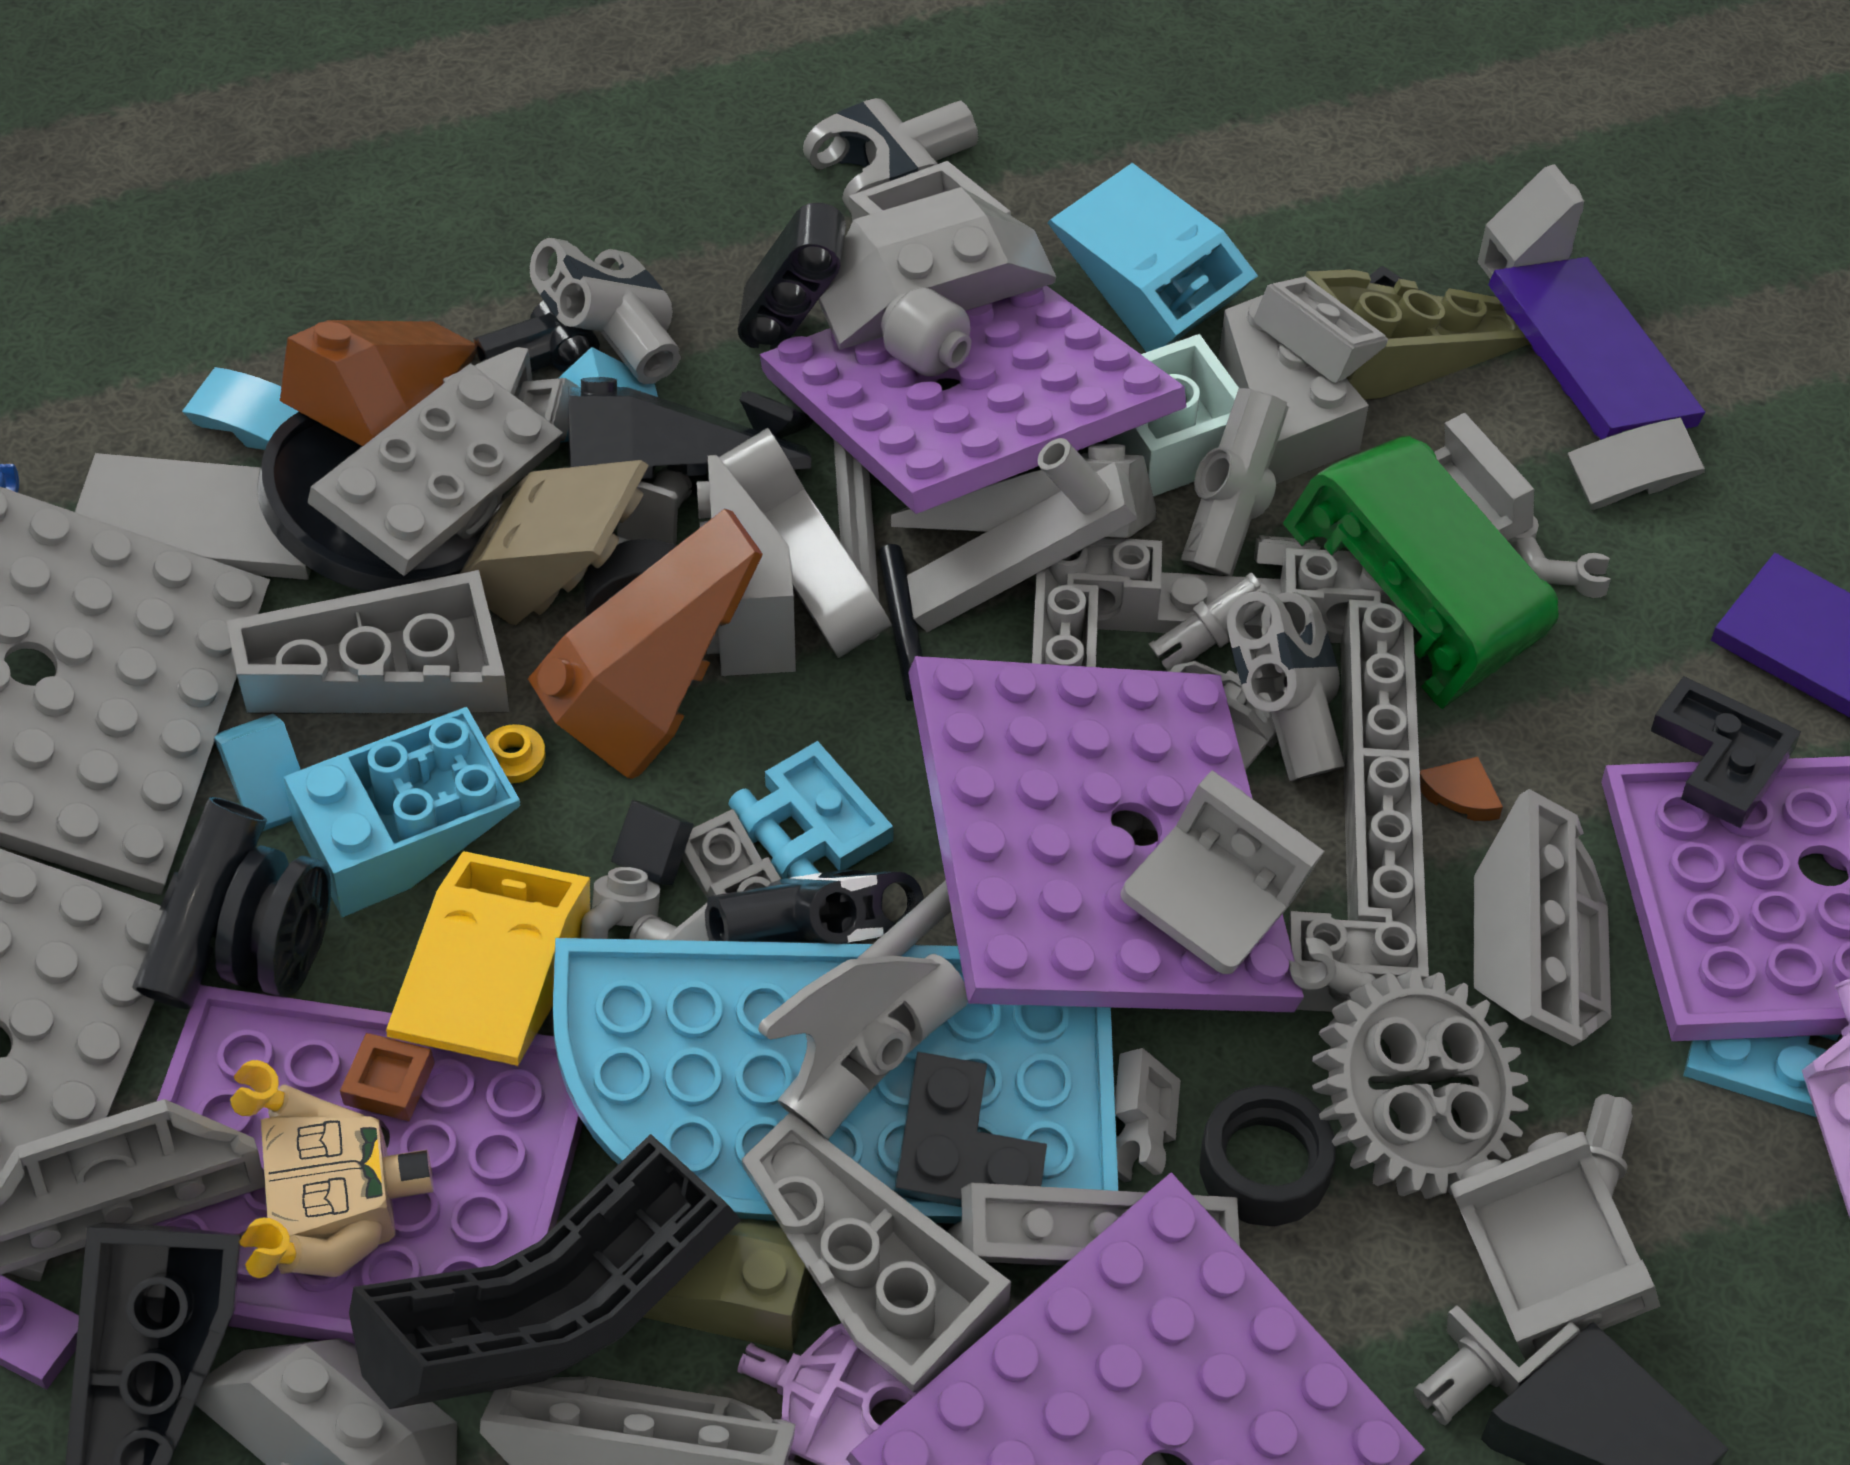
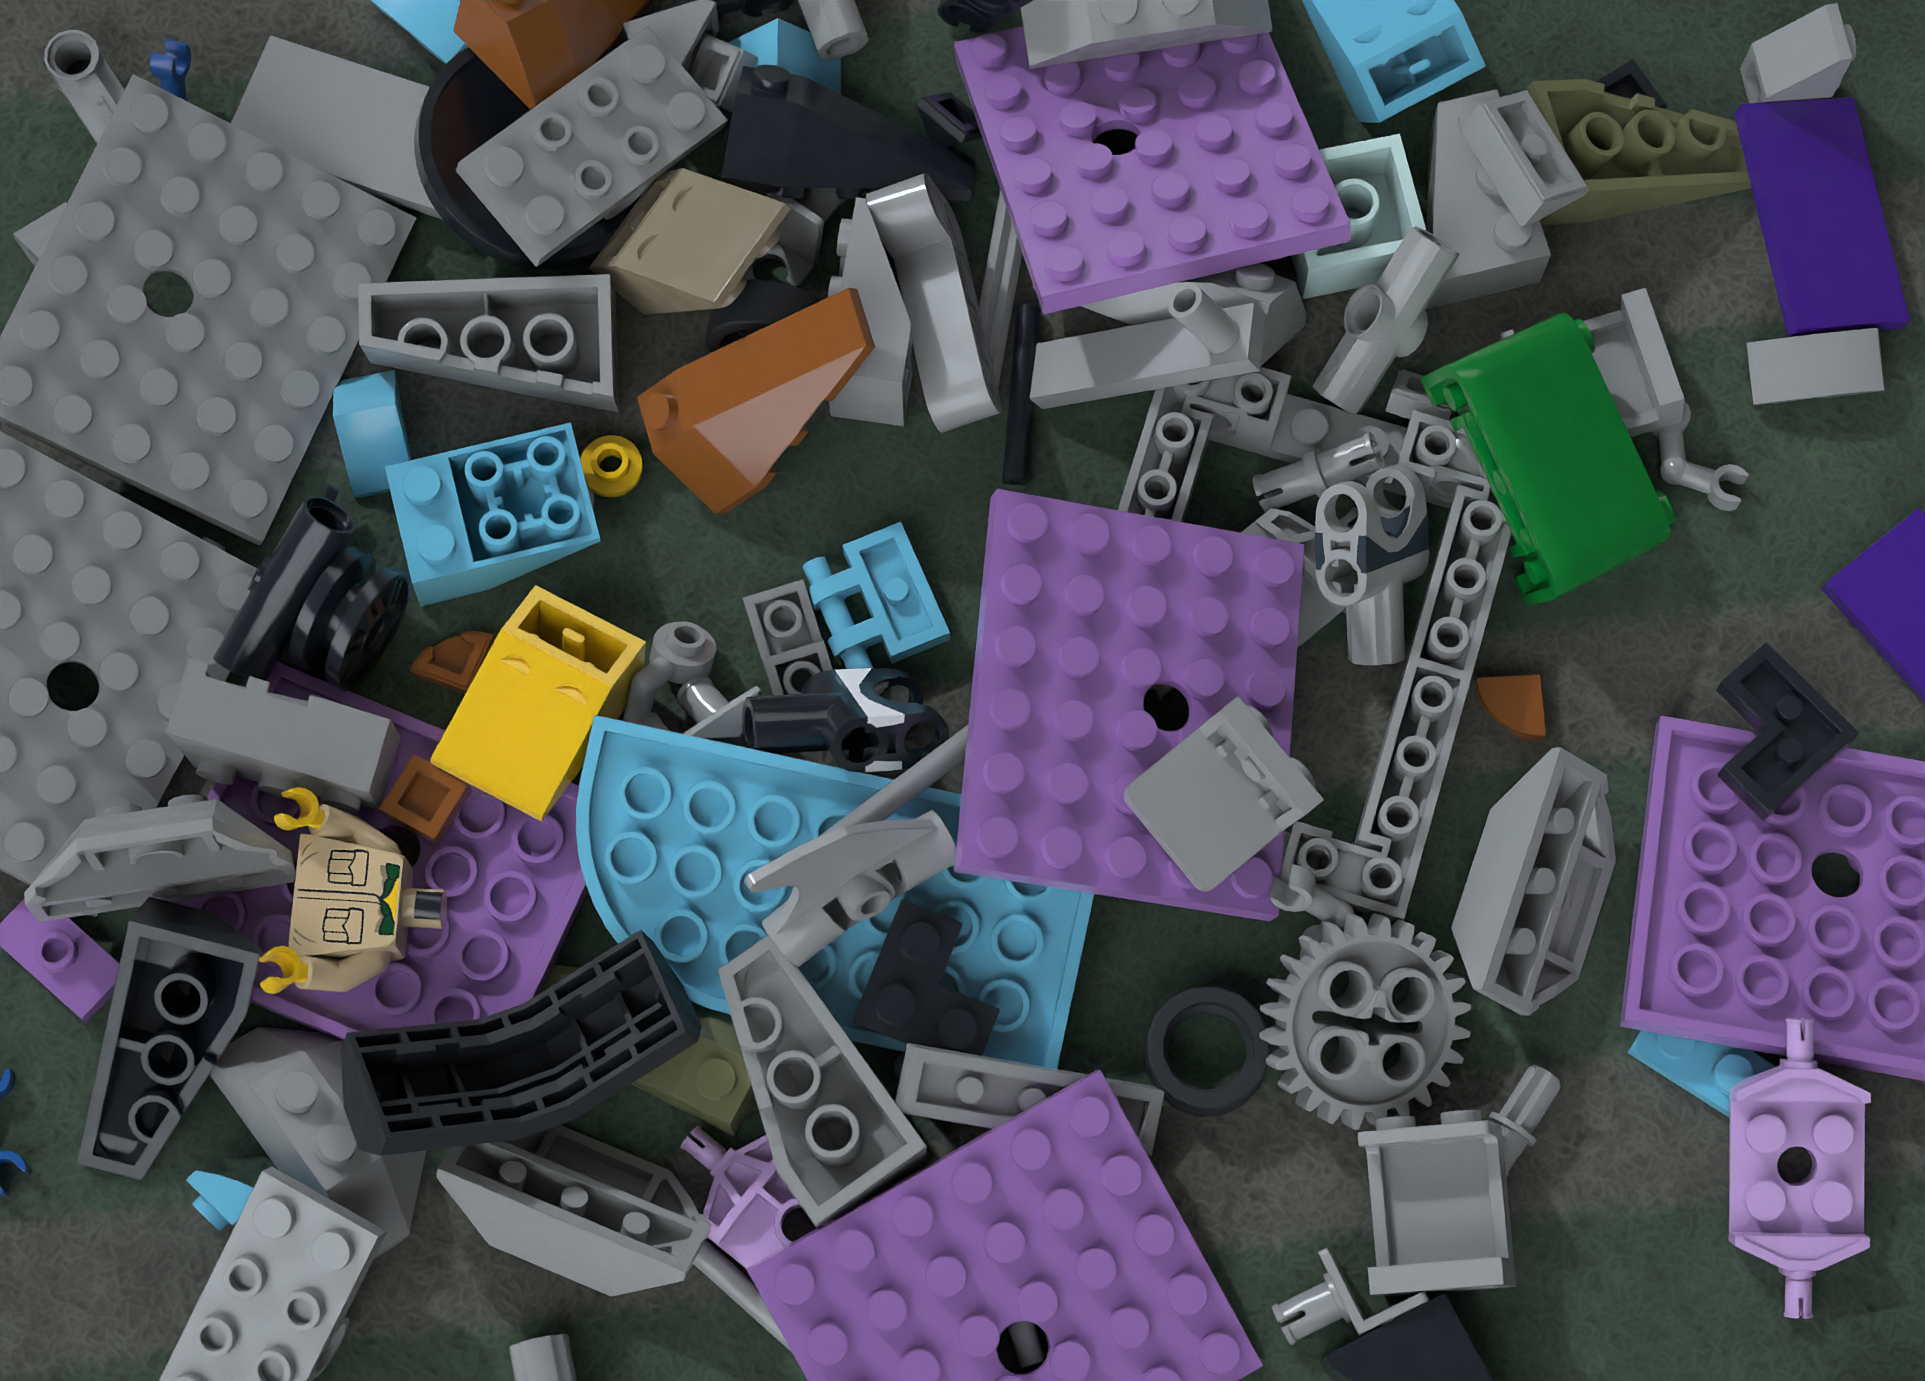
camera: 15 degrees right, 20 degrees up
(193, 1036) = (282, 740): none -> light grey wedge
(386, 957) = (454, 660): none -> dark orange tile
(652, 842) = (719, 599): black tile -> none
(925, 330) = (1112, 89): light grey head -> none
(1148, 1106) = (1110, 982): light grey plate -> none

